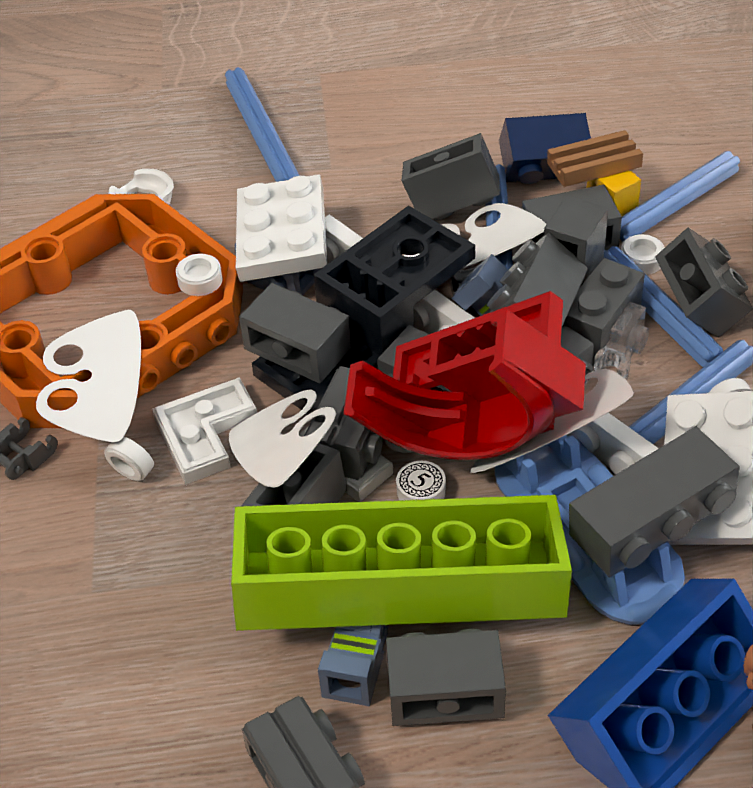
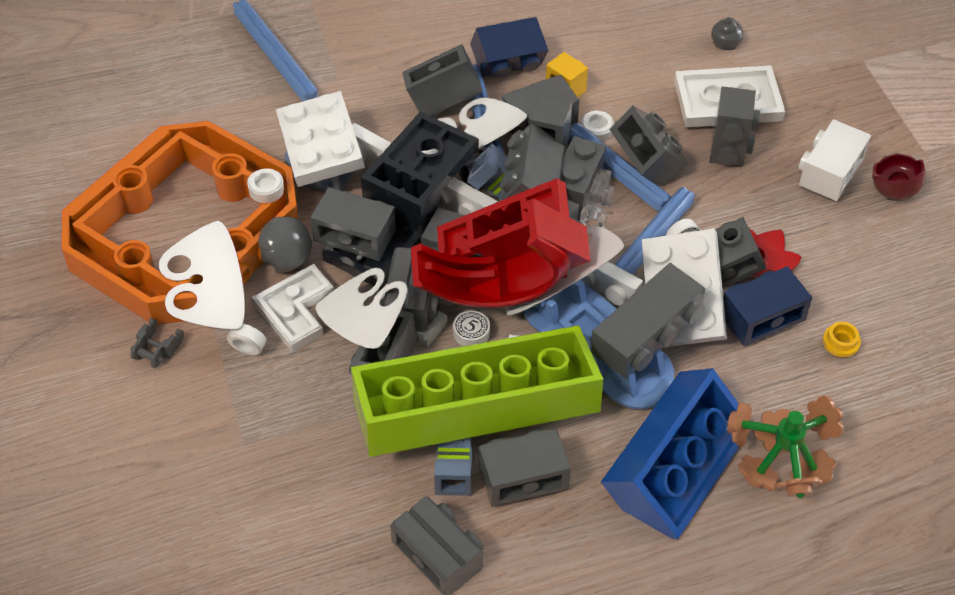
camera: 15 degrees left, 5 degrees up
(148, 181) = (194, 107): white piece -> none
(206, 348) = (284, 243): none -> dark grey hair
(594, 158) = (547, 50): medium nougat tile -> none
(678, 195) = (616, 74): medium blue axle -> none

